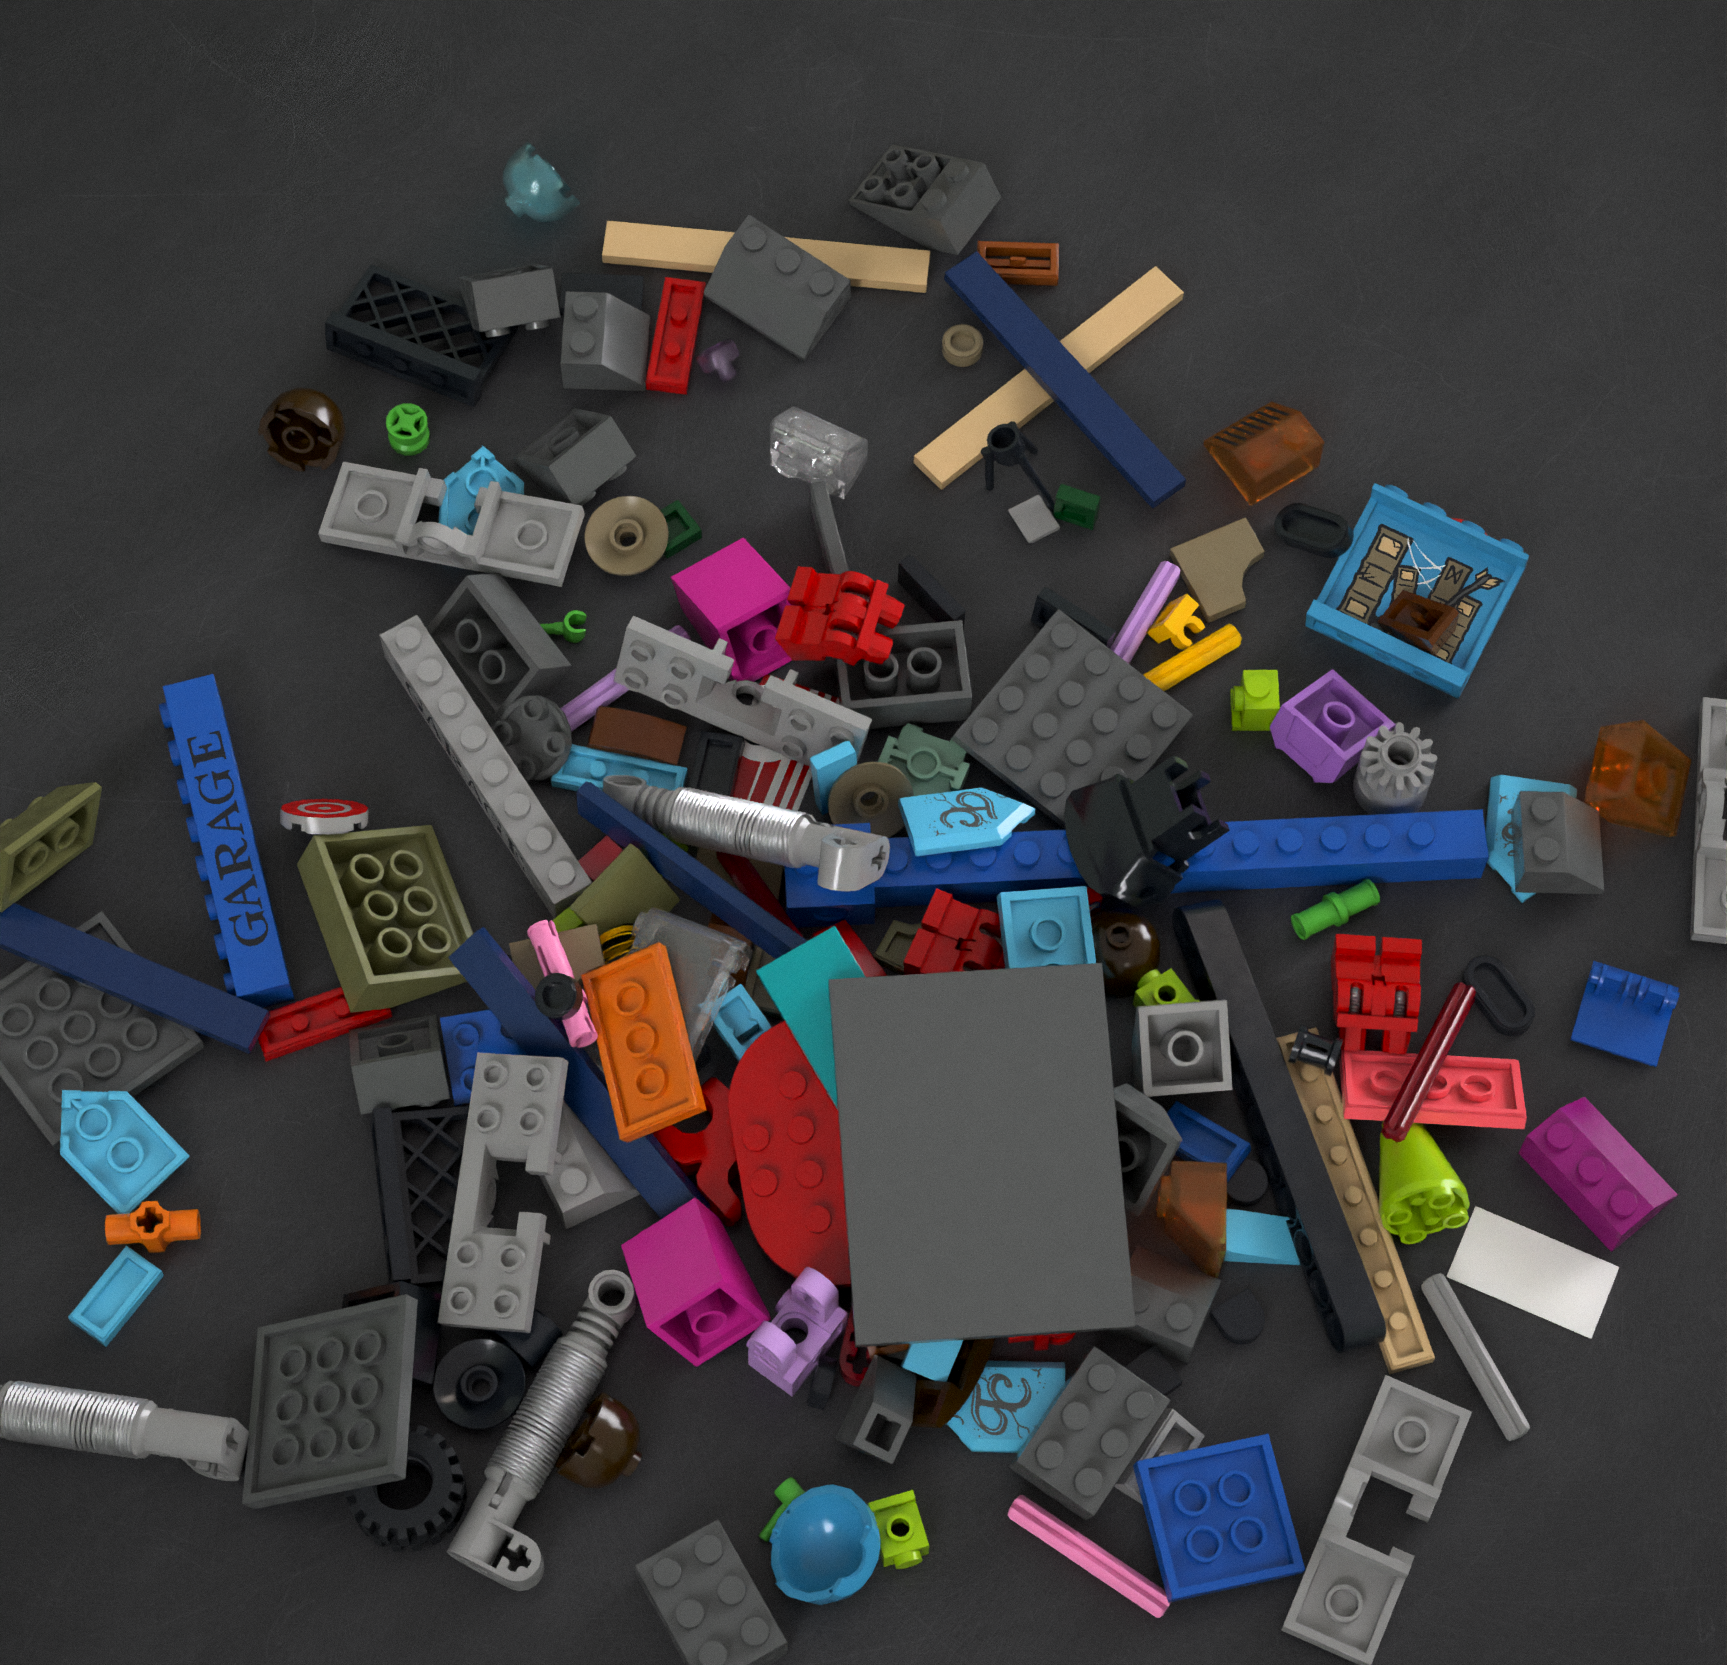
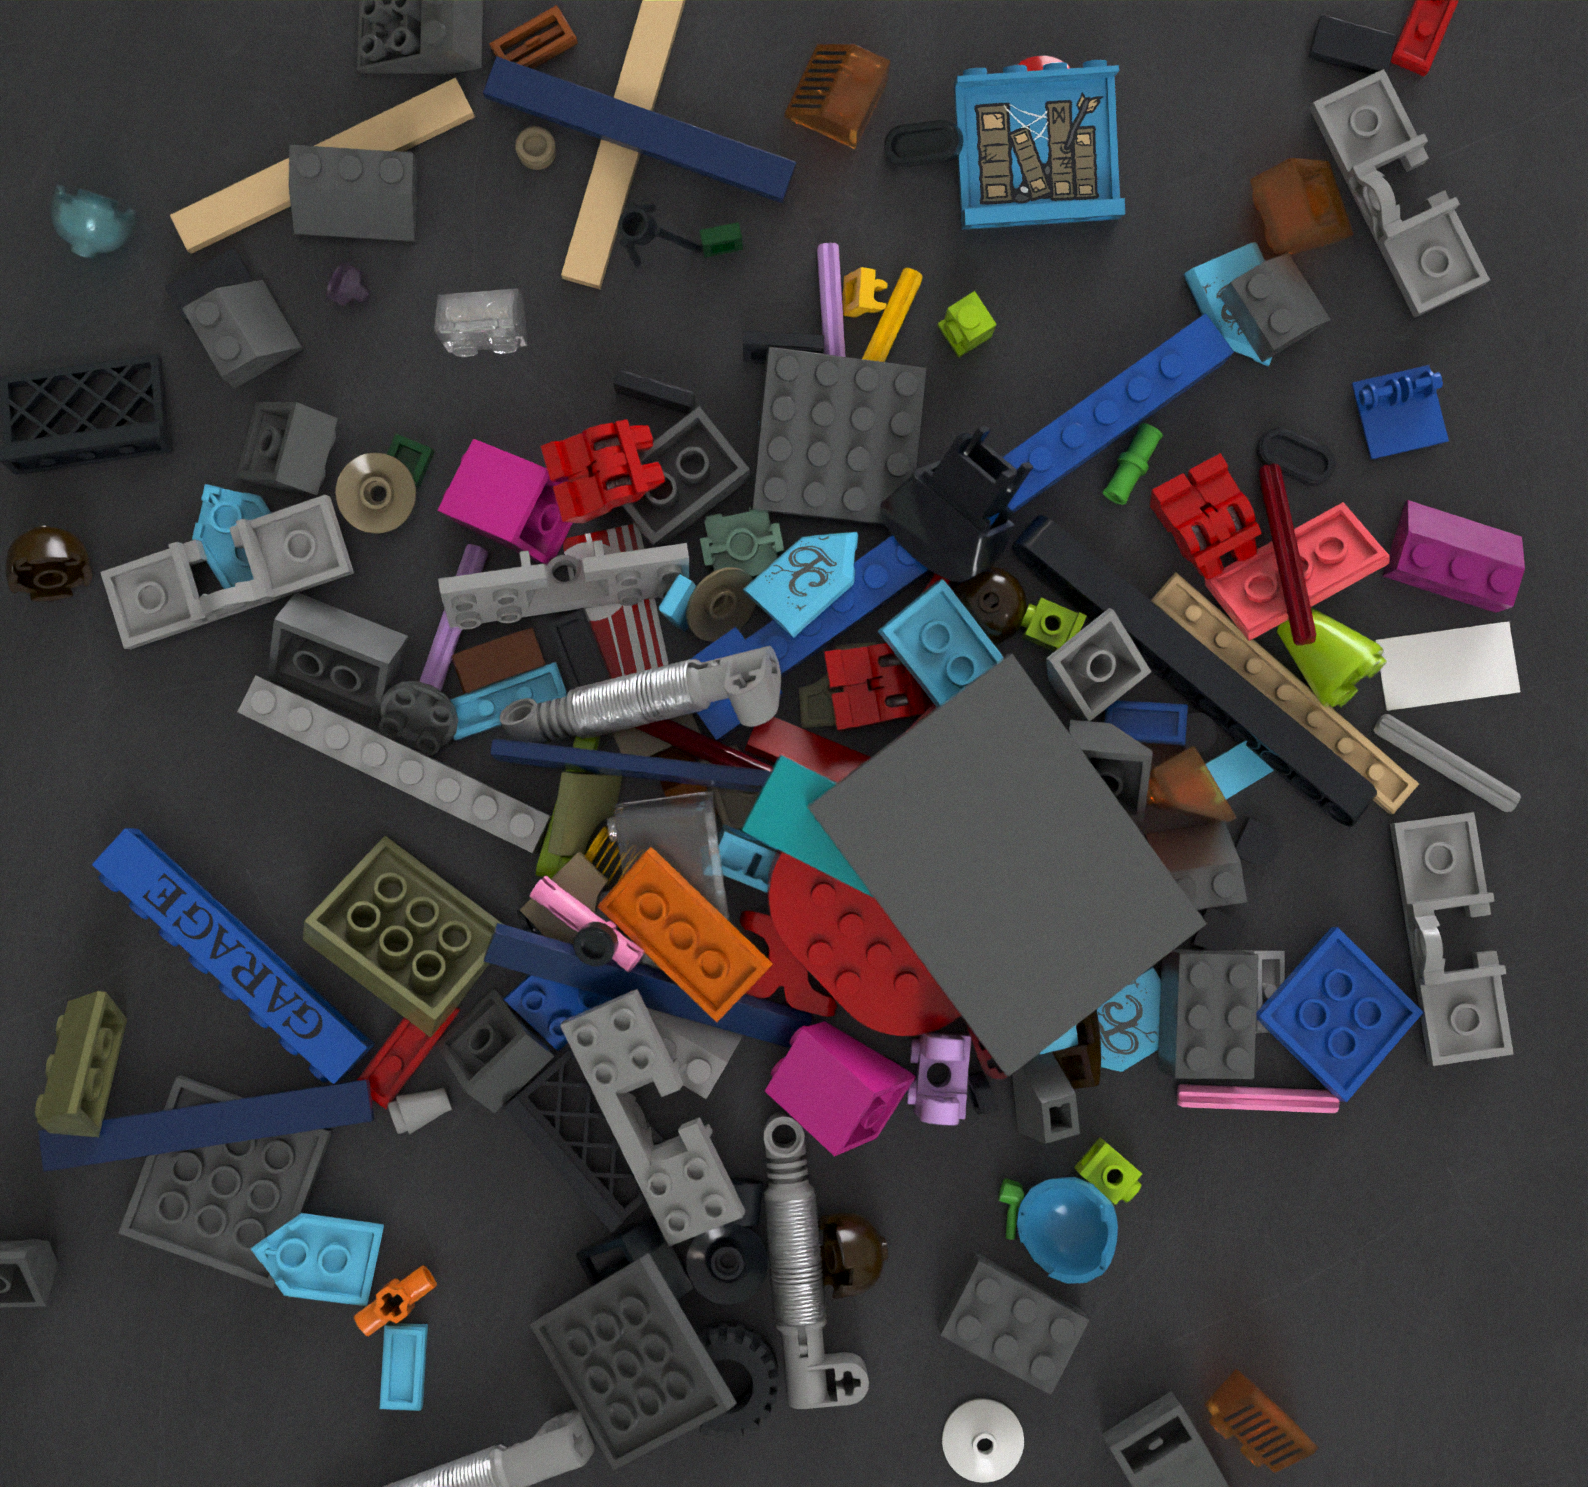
camera: 35 degrees left, 20 degrees up
(293, 1073) = (418, 1109): none -> light grey cone
(324, 815) = (298, 890): light grey tile -> none
(410, 419) = (125, 502): bright green wheel -> none
(510, 298) = (138, 339): dark grey slope -> none
(563, 628) = (376, 603): bright green hand -> none
(600, 857) = (541, 783): coral piece -> none
(675, 336) = (295, 284): red tile -> none
(826, 528) = (540, 392): dark grey tile -> none
(1034, 519) = (690, 269): light grey piece -> none
(1216, 567) = (862, 221): dark tan tile -> none
(1315, 1050) = (1206, 599): black bush -> none
(1327, 727) = (1040, 311): medium lavender slope -> none
(1394, 772) = (1113, 339): light grey gear -> none
(1420, 621) = (1058, 176): reddish brown slope -> none

